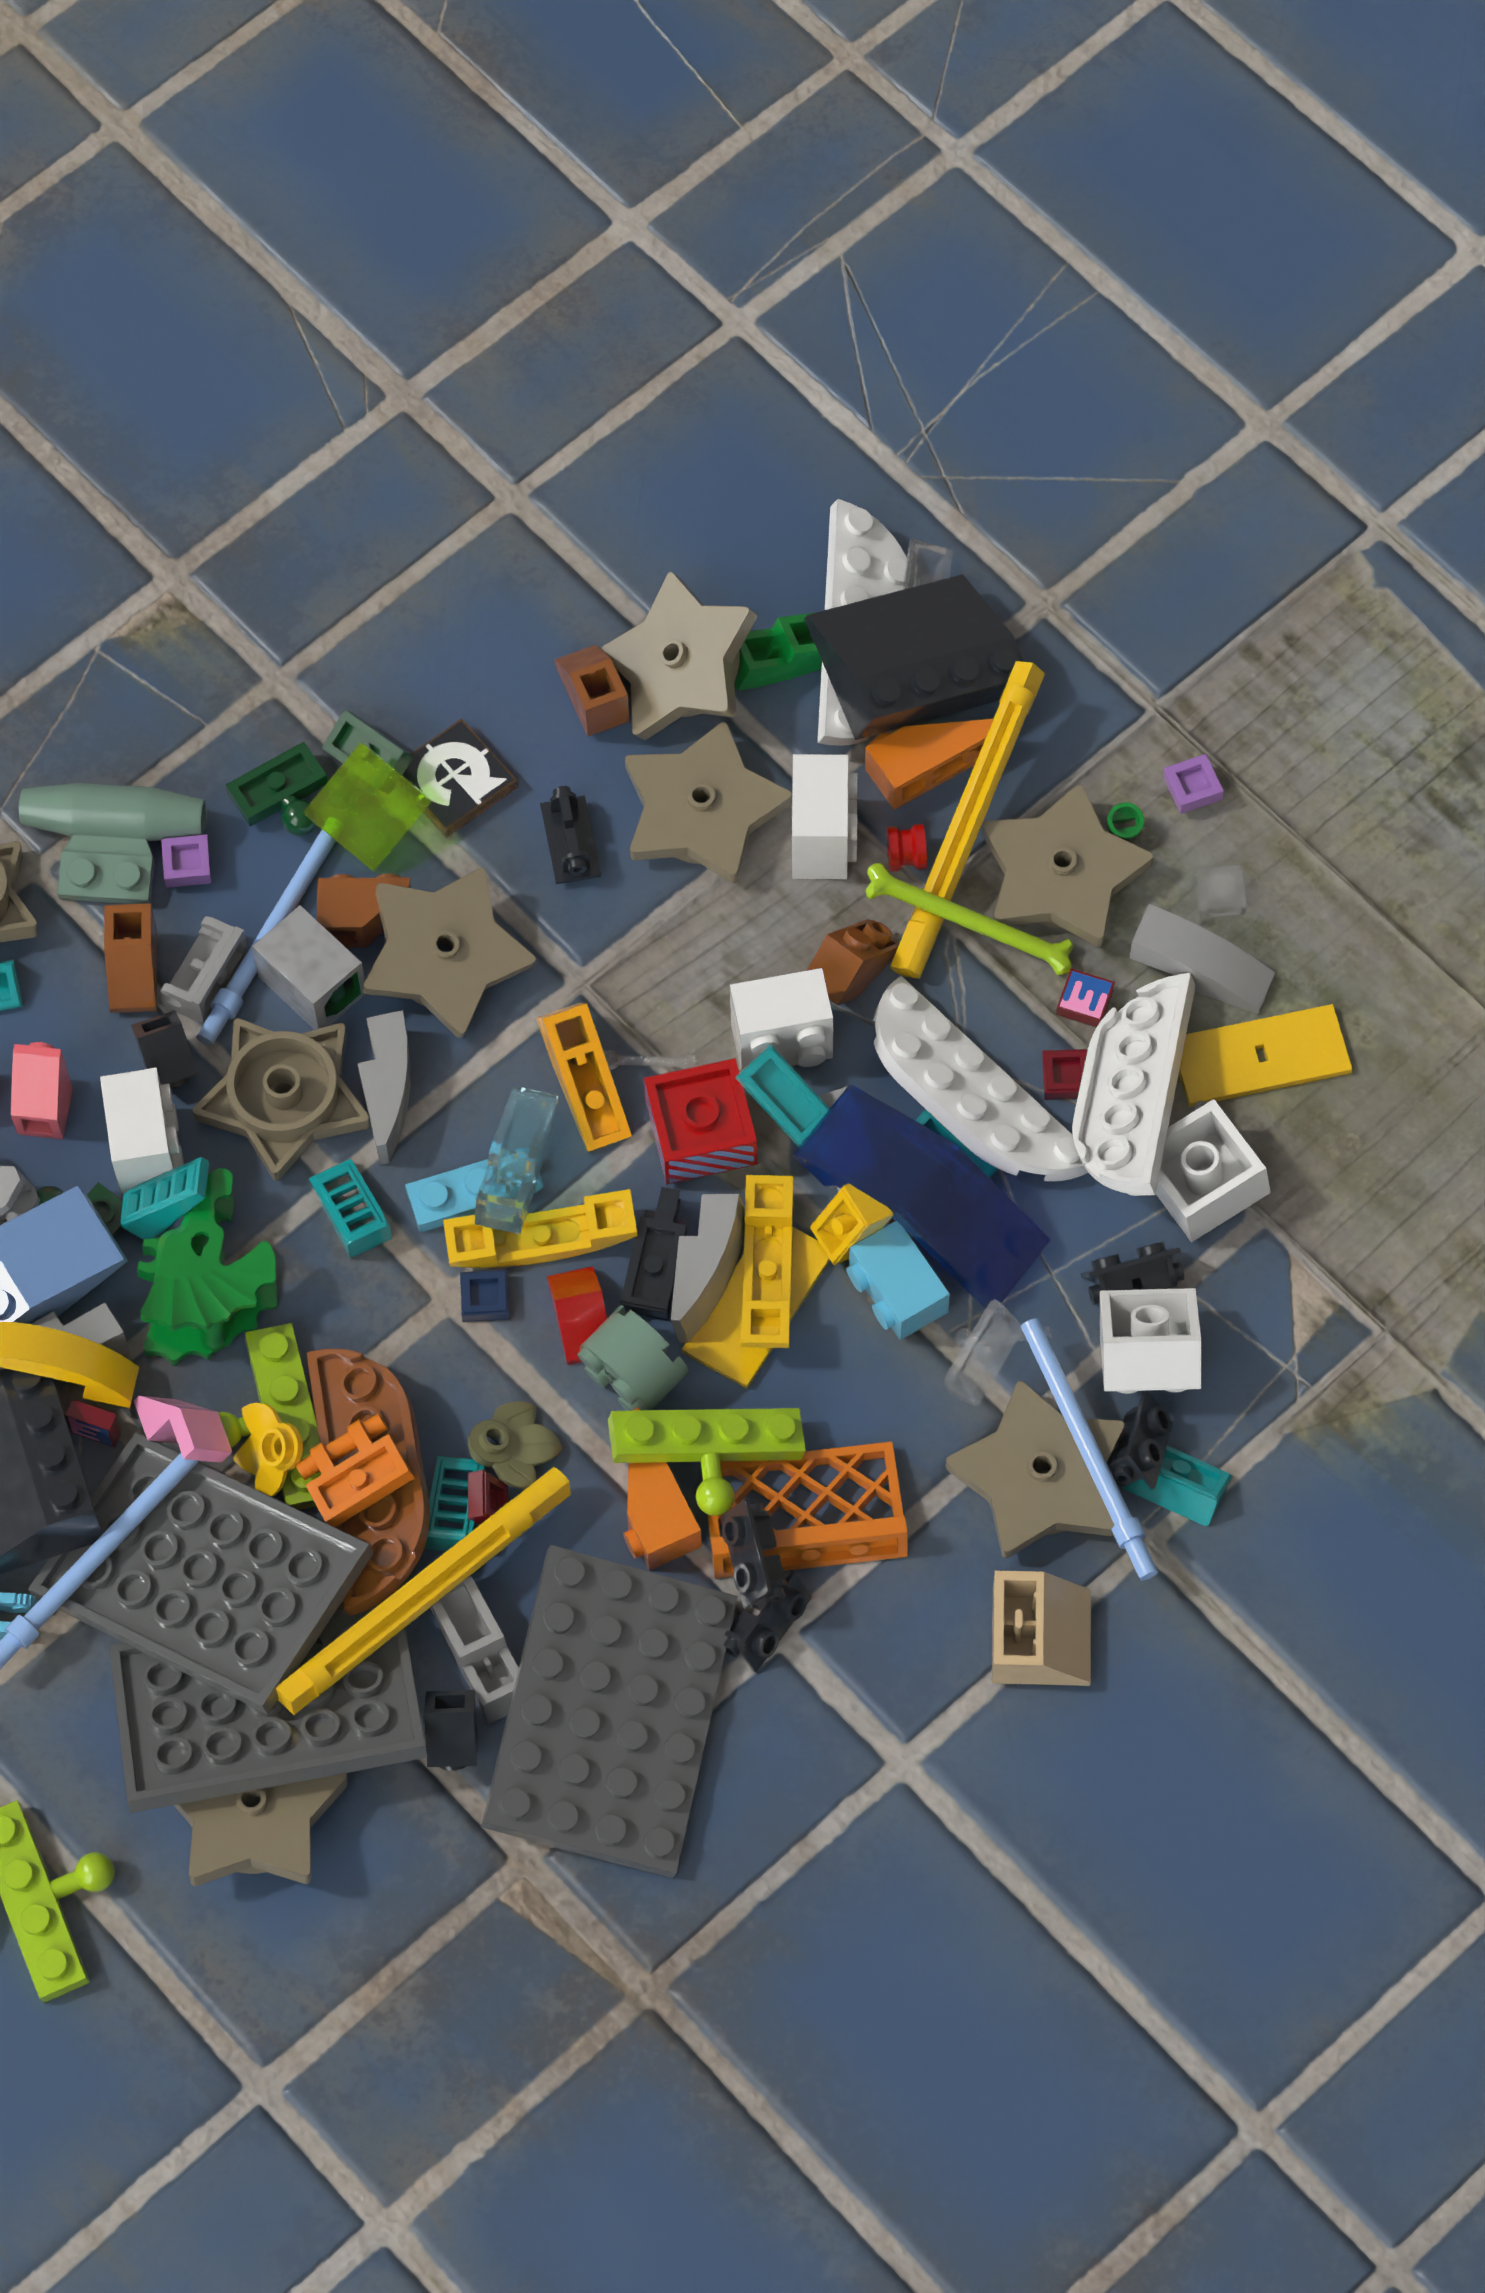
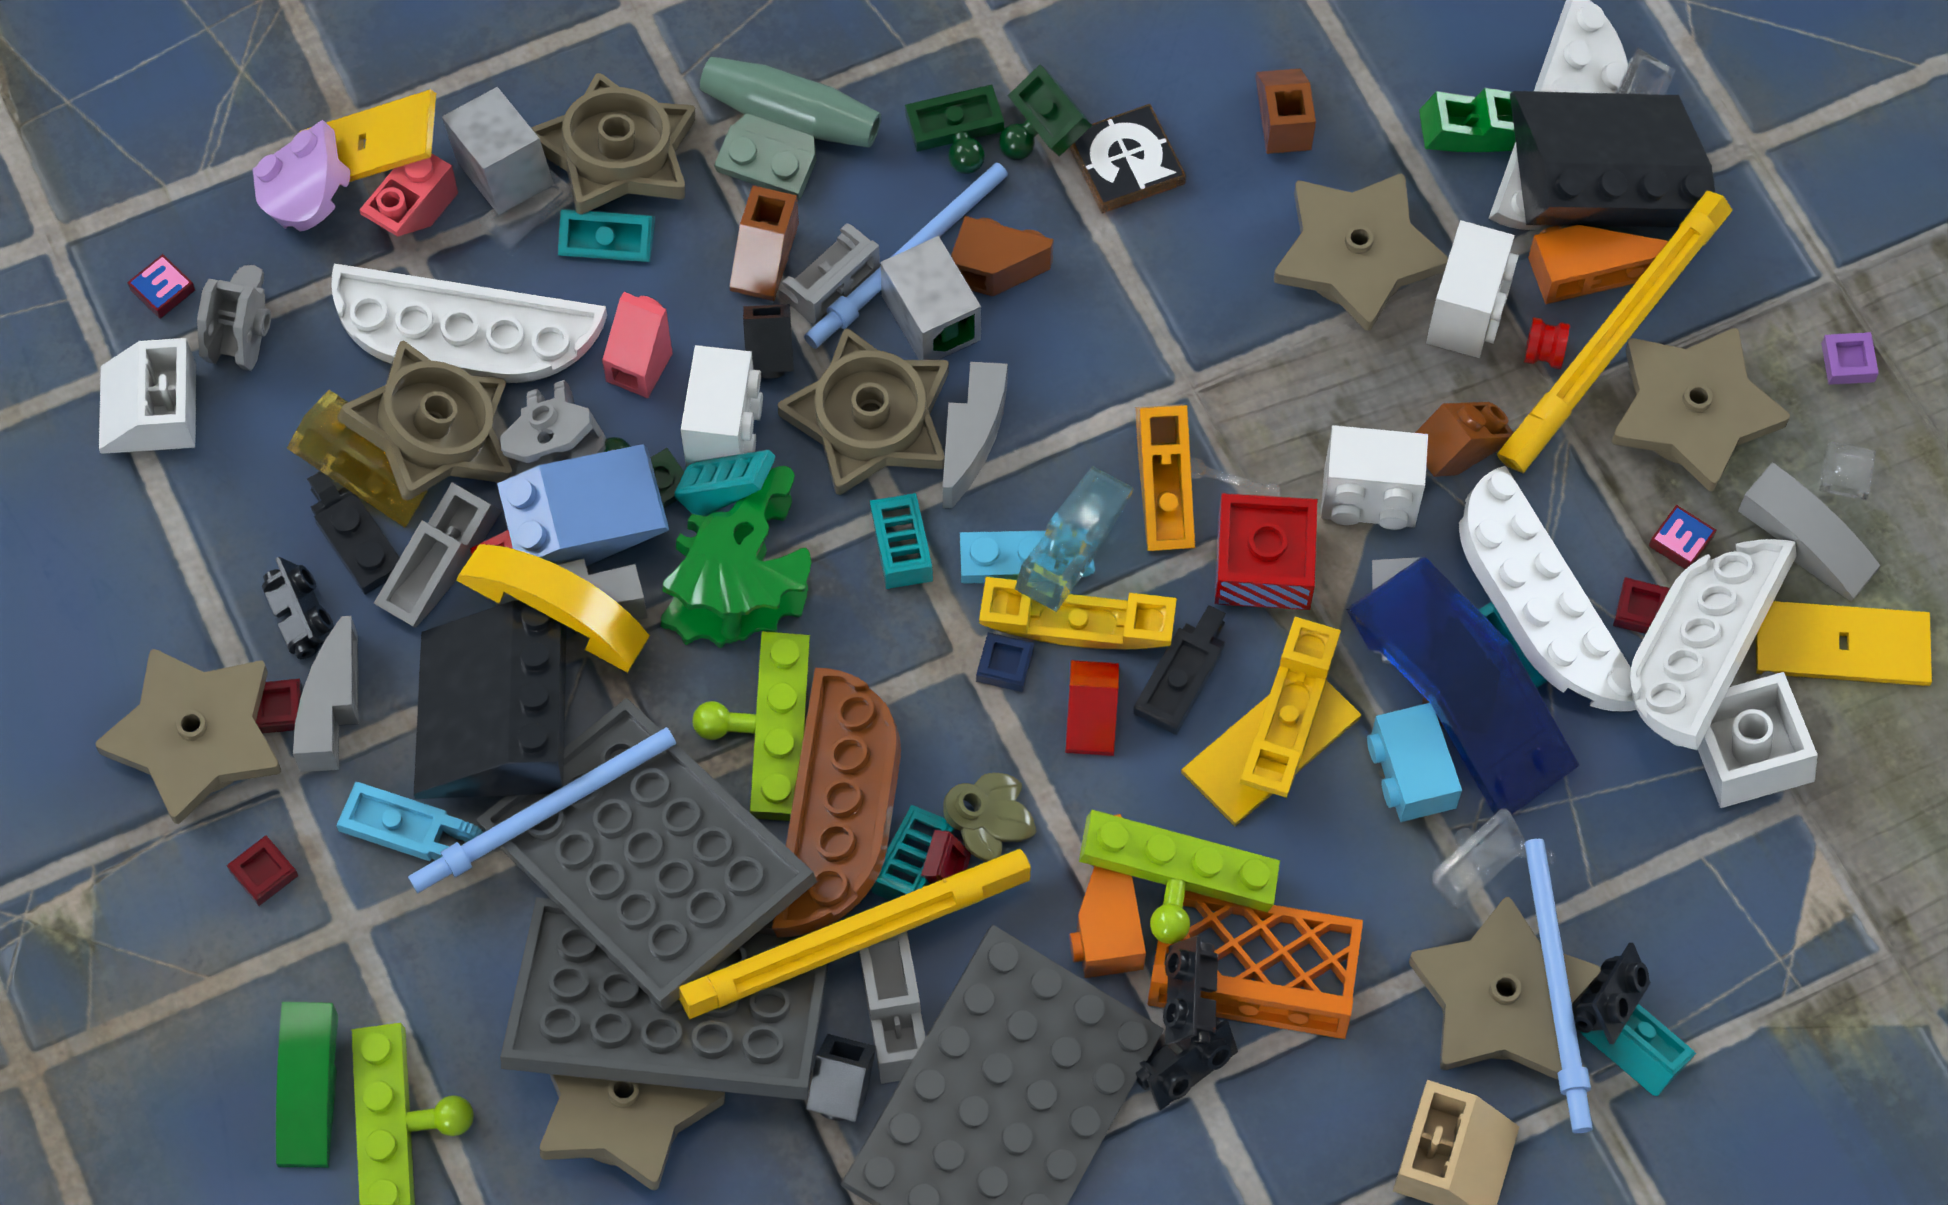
camera: 15 degrees right, 0 degrees up
(93, 1423) = (589, 677): dark red tile -> none
(186, 861) = (846, 167): medium lavender plate -> none
(190, 1426) = (682, 709): bright pink slope -> none
(270, 1449) = (749, 752): yellow plate -> none
(359, 1480) = (824, 806): orange plate -> none
(367, 806) = (1033, 161): clear neon green plate -> none
(443, 981) = (1060, 348): dark tan plate -> none
(570, 837) = (1221, 243): black hinge -> none
(632, 1360) = (1128, 765): sand green brick -> none
(681, 658) = (1379, 101): plate -> none
(706, 1262) = (1230, 691): light grey slope -> none
(783, 1094) = (1353, 547): teal tile -> none
(847, 1221) = (1382, 689): yellow slope -> none
(885, 884) = (1515, 371): lime piece -> none
(1124, 813) = (1772, 368): green hinge -> none
(1150, 1340) = (1651, 894): white brick -> none
(1151, 1267) = (1673, 822): black hinge -> none

